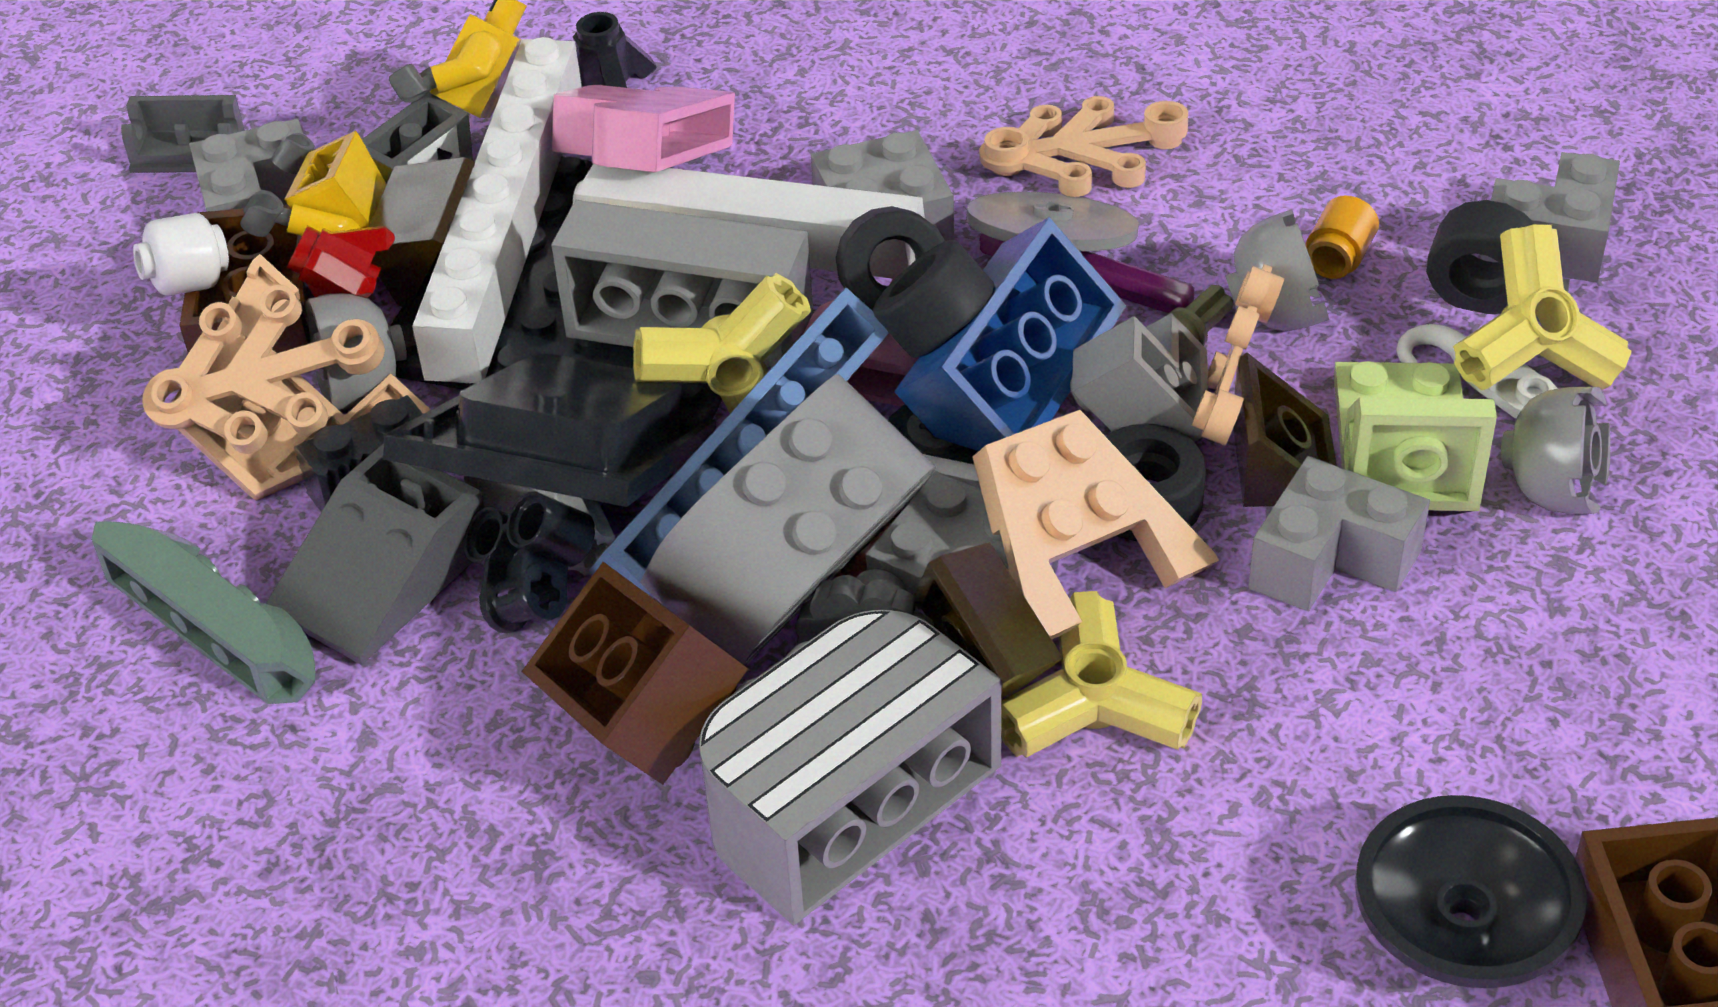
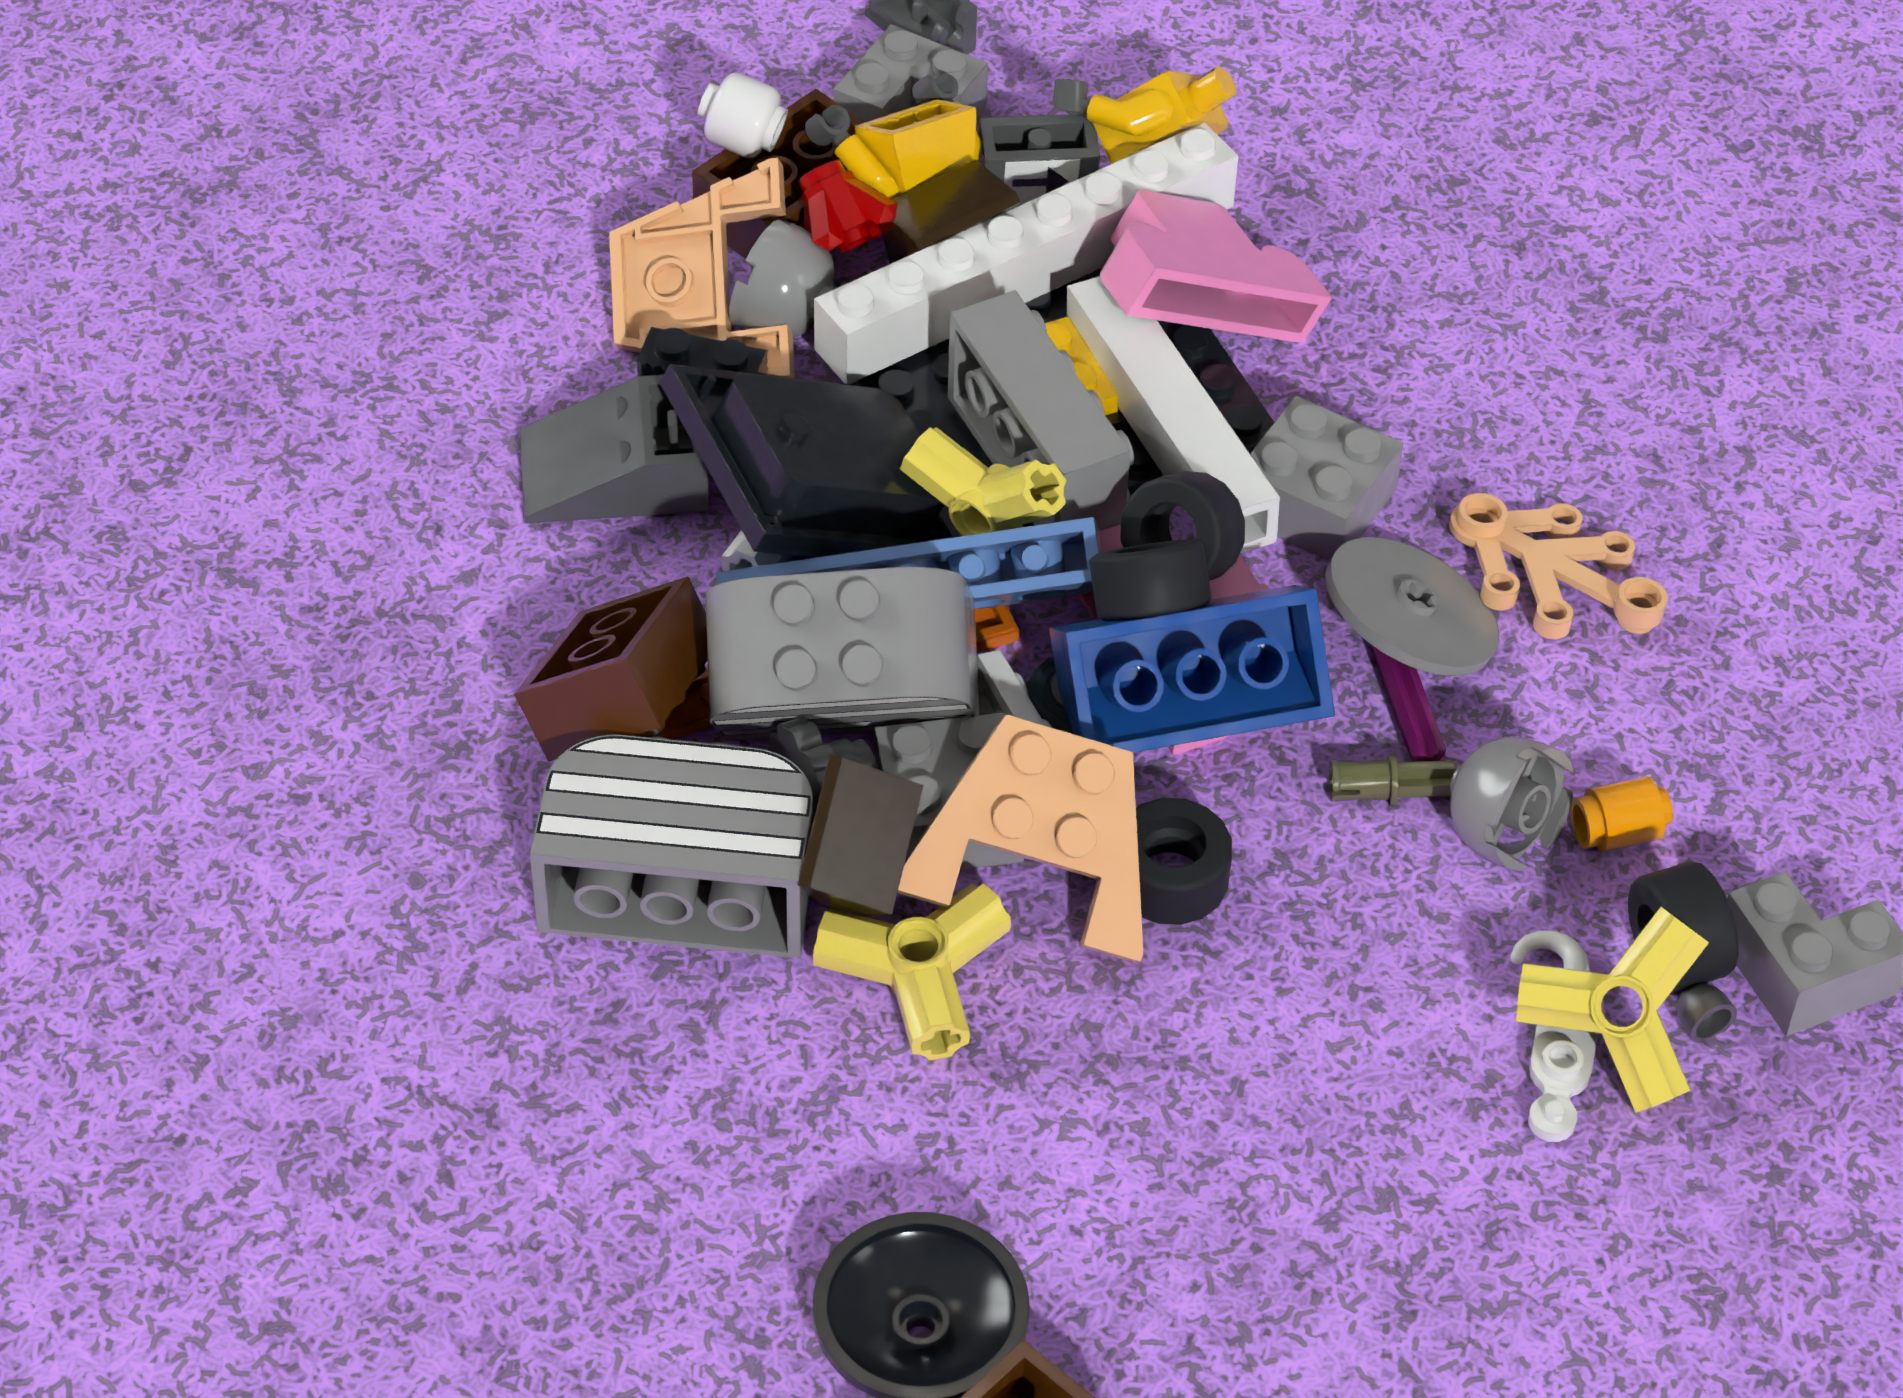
camera: 45 degrees right, 5 degrees up
(223, 622) = (479, 419): sand green brick -> none
(253, 372) = (678, 247): light nougat plant -> none
(527, 557) = (691, 534): black piece -> none
(606, 53) = (1293, 188): black rock -> none
(1142, 375) = (1263, 791): light grey brick -> none
(1255, 303) = (1357, 818): light nougat plant -> none
(1274, 433) = (1311, 918): dark brown slope -> none
(1338, 523) = (1235, 1002): light grey brick -> none
(1415, 430) = (1402, 1009): yellowish green bracket -> none
(1556, 443) = (1499, 1105): light grey cylinder -> none

